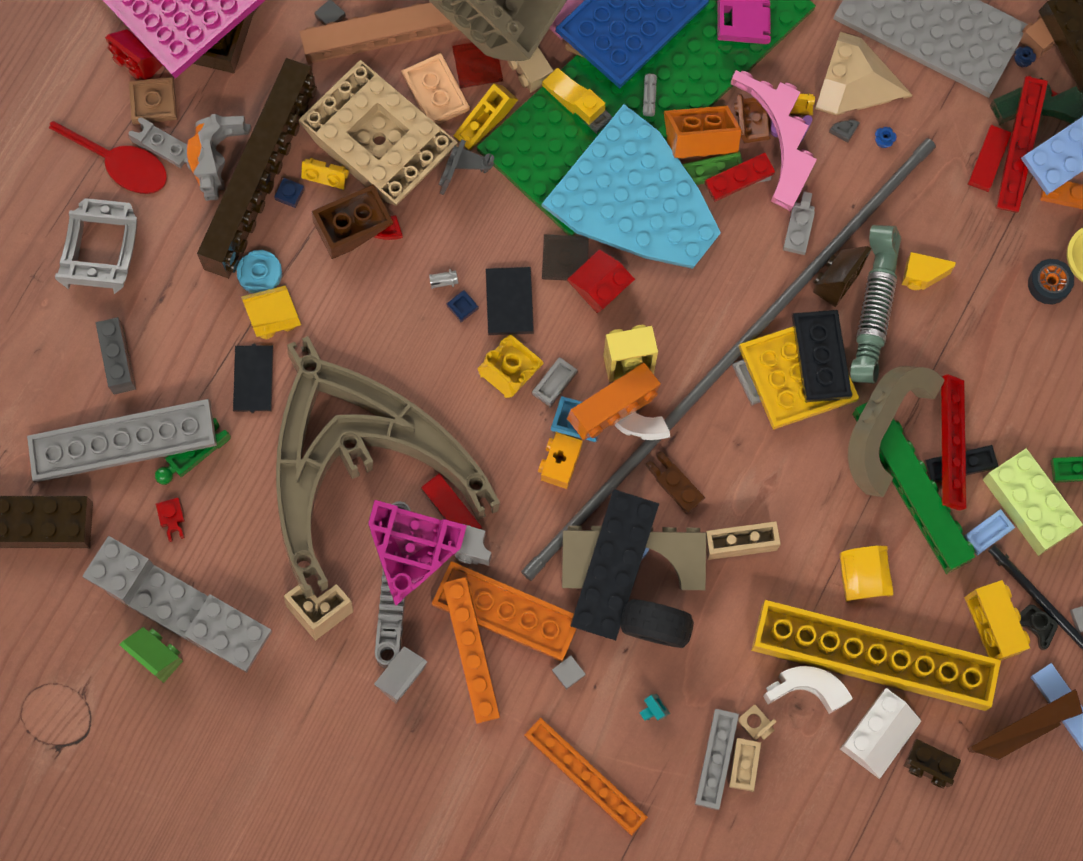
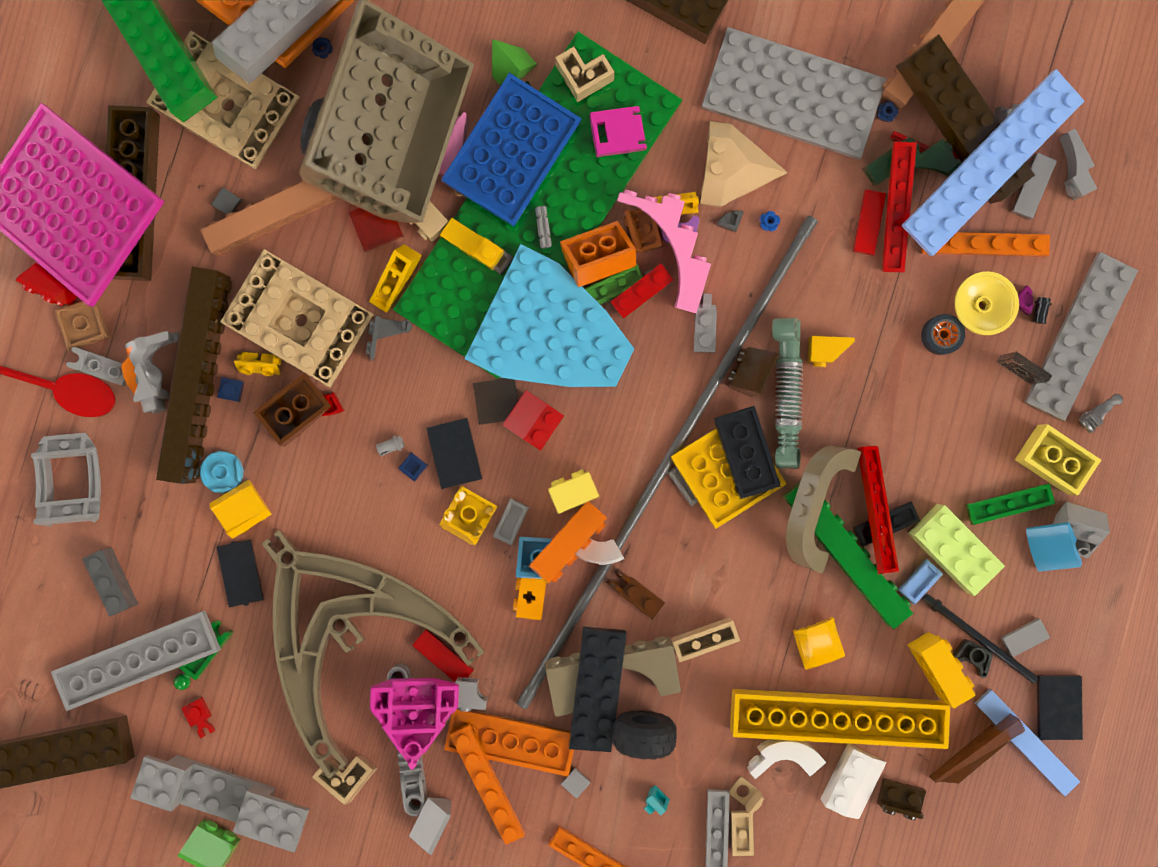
camera: 10 degrees left, 15 degrees up
(435, 89) = (342, 259): light nougat tile -> none

